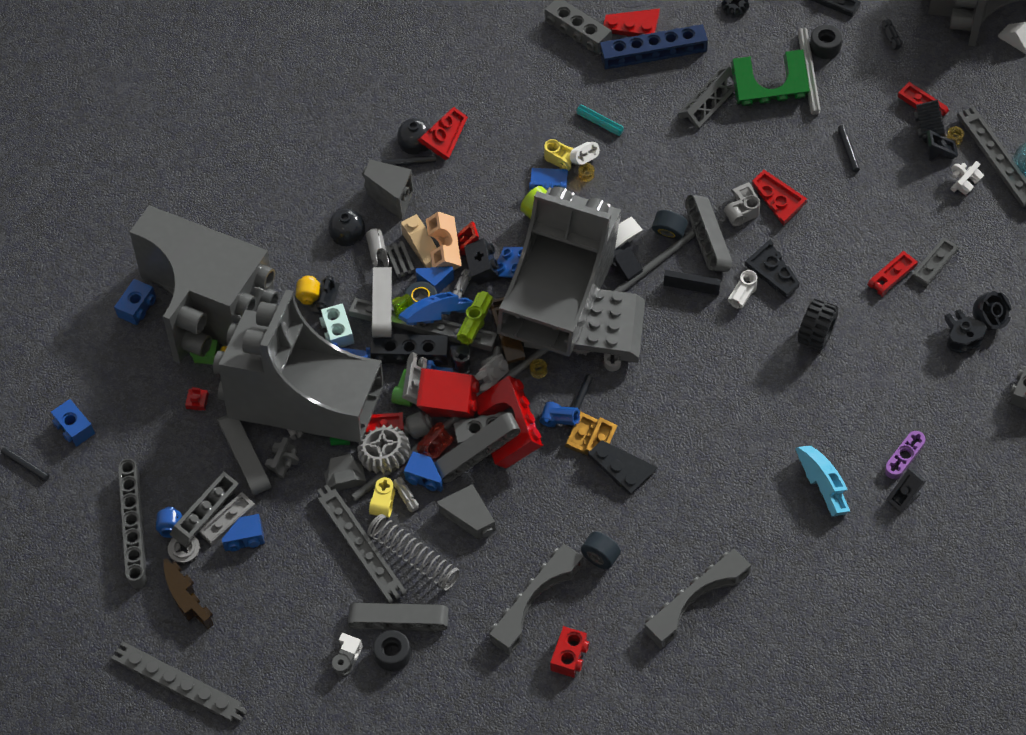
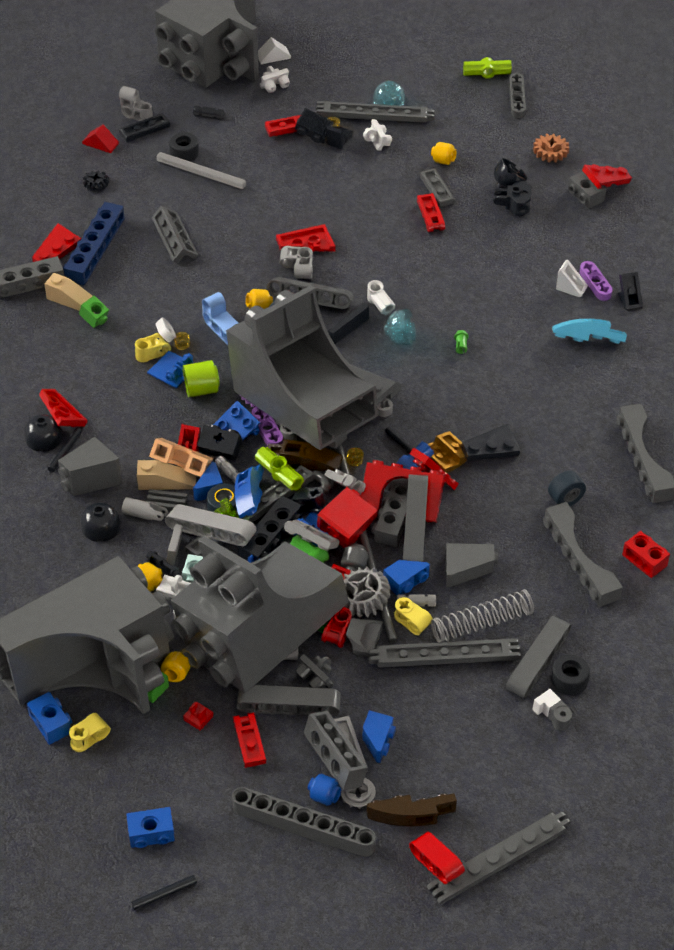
camera: 65 degrees left, 10 degrees down
(137, 334) = (89, 732): none -> light yellow piece
(144, 634) = (437, 857): none -> red beam
(191, 445) = (249, 740): none -> red plate
(308, 311) = (172, 586): none -> white hips
(336, 448) = (336, 629): none -> red piece
(351, 289) = (174, 544): none -> light grey tile
(437, 439) = (380, 552): clear red piece -> none
(550, 429) = (428, 464): none -> red wing
(569, 85) = (94, 305): none -> bright green brick
(580, 66) = (65, 292): none -> tan slope
(600, 120) = (136, 309): teal axle -> none
(627, 185) = (216, 315): none -> light blue beam
(671, 200) = (258, 297): none -> yellow head
(714, 325) = (400, 327): none -> clear light blue cylinder
(736, 381) = (461, 341): none -> bright green pin
(749, 91) = (190, 206): green arch -> none
(772, 269) = (363, 273): black wing -> none
(817, 324) = (452, 266): black tyre -> none
(848, 147) = (310, 187): black bar -> none
(884, 432) = (570, 280): none -> white slope
(978, 54) = (274, 77): none -> white hips
(982, 243) = (443, 153): none -> yellow head

